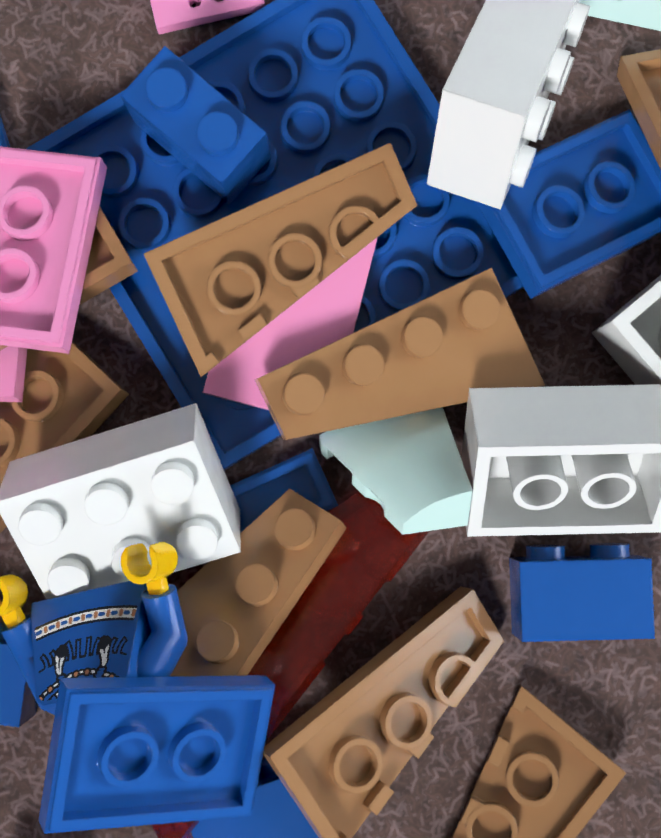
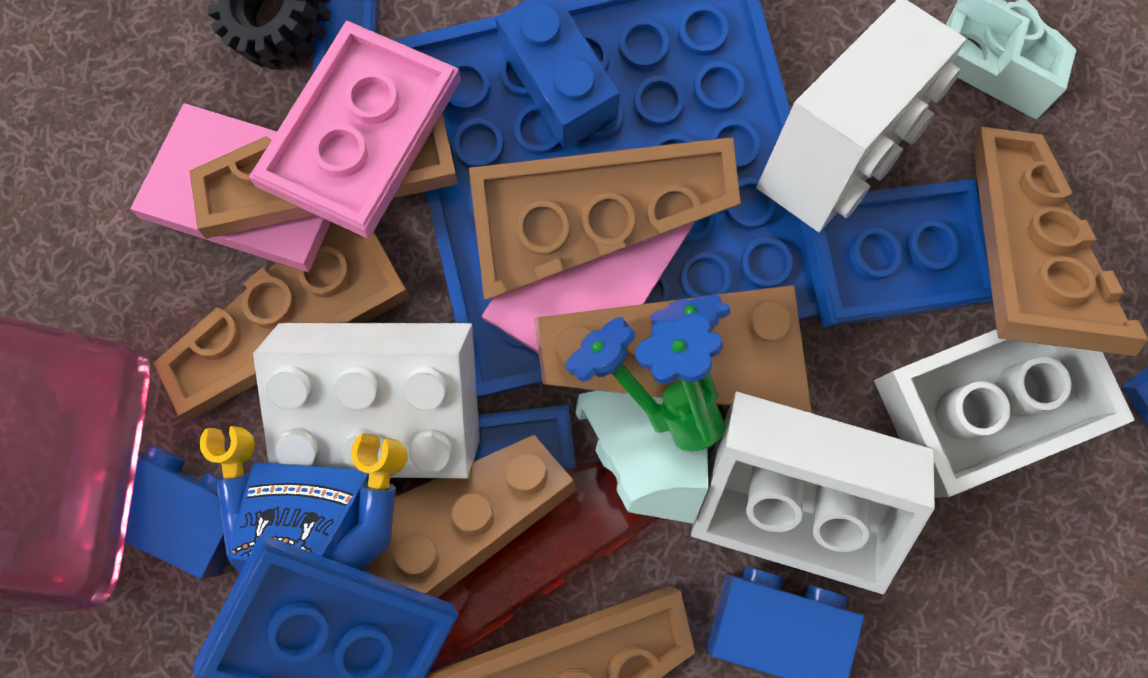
camera: 20 degrees right, 5 degrees down
(406, 377) = (678, 349): none -> blue plant

